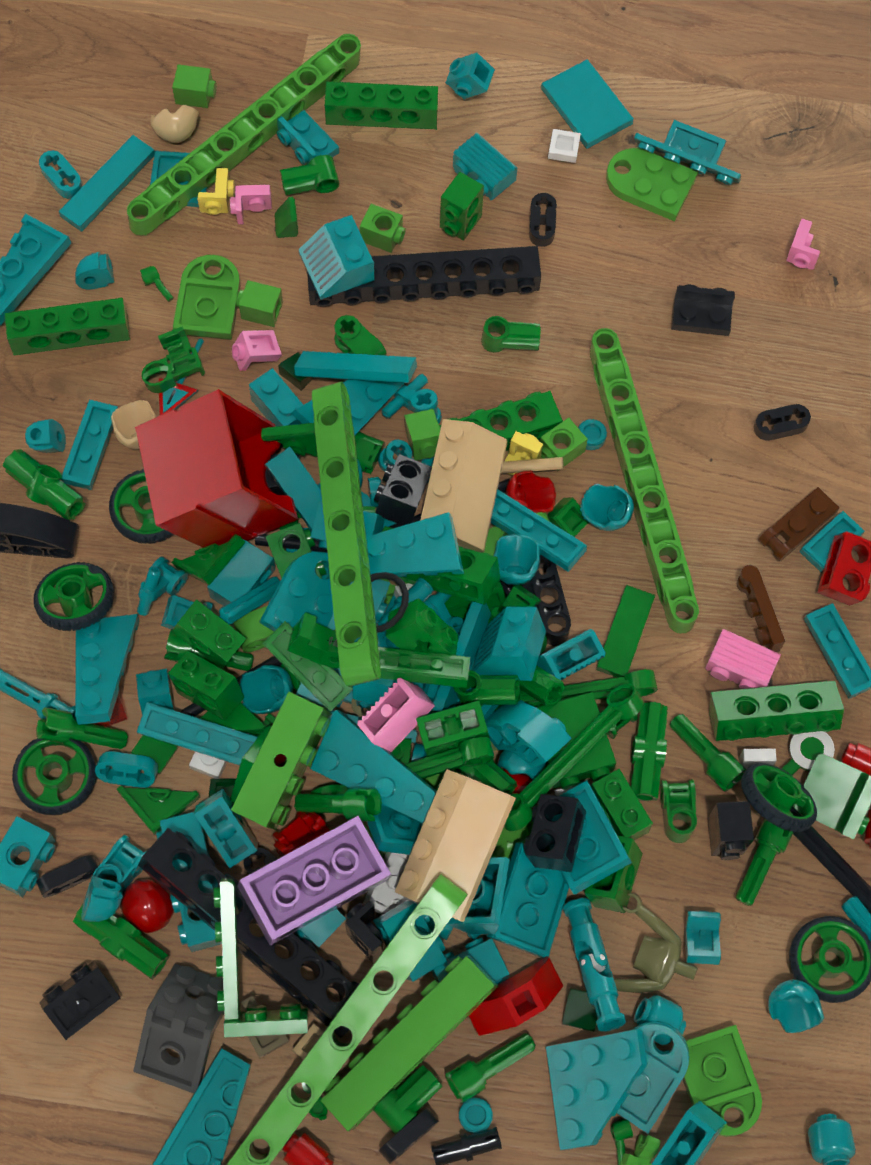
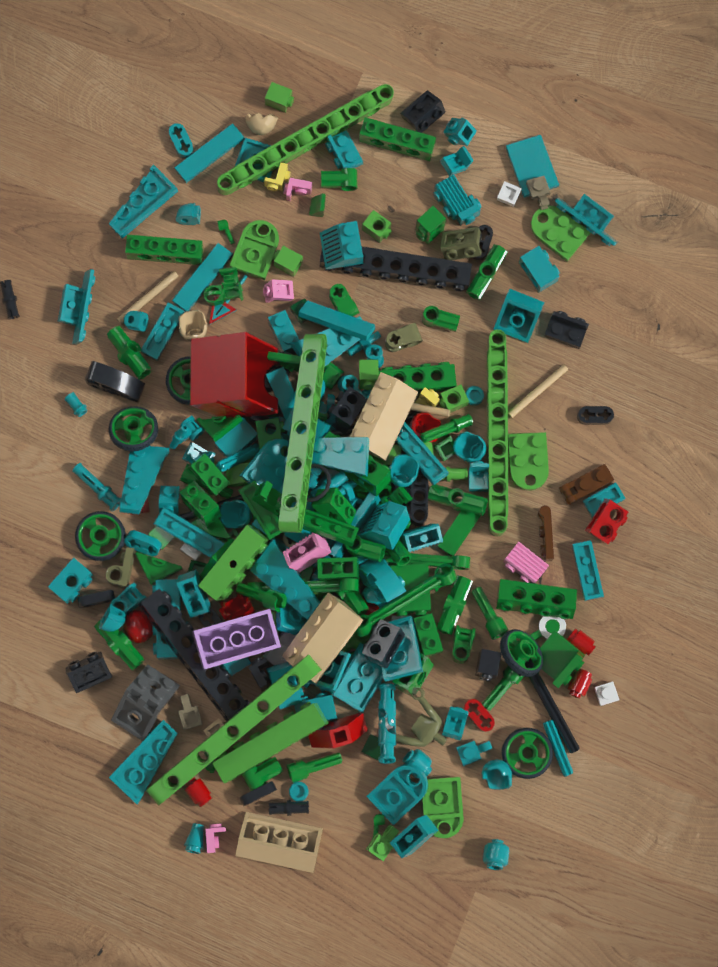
camera: 10 degrees right, 10 degrees up
(61, 396) = (150, 295): none -> tan bar
(61, 727) = (110, 510): green piece -> none
(107, 801) = (127, 559): none -> olive plate
(135, 355) = (202, 277): none -> teal tile
(257, 1019) = (186, 709): bracket -> none
(410, 61) = (423, 111): none -> black bracket
(462, 374) = (406, 336): none -> olive piece
(478, 118) = (457, 161): none -> teal bracket
(514, 224) = (461, 243): none -> olive bracket
(515, 182) = (469, 215): none -> teal bracket
(559, 269) = (492, 262): none -> green piece
(573, 482) = (454, 425): none -> green axle
(592, 1083) = (368, 790): teal plate -> none
(595, 553) = (456, 474): none -> bright green pin
(608, 129) = (539, 190): none -> dark tan plate
(627, 305) = (519, 315): none -> teal slope
(628, 587) = (468, 502): none -> green piece
(632, 548) = (478, 476): none -> teal bracket
(638, 236) = (539, 268): none -> teal brick
(685, 406) = (537, 391): none -> tan bar
(700, 507) = (528, 458): none -> bright green plate
(740, 981) = (471, 753): none -> teal plate
(741, 911) = (482, 712): none -> red beam
(752, 756) = (517, 624): white plate -> none
(800, 251) = (644, 295): bright pink bracket -> none

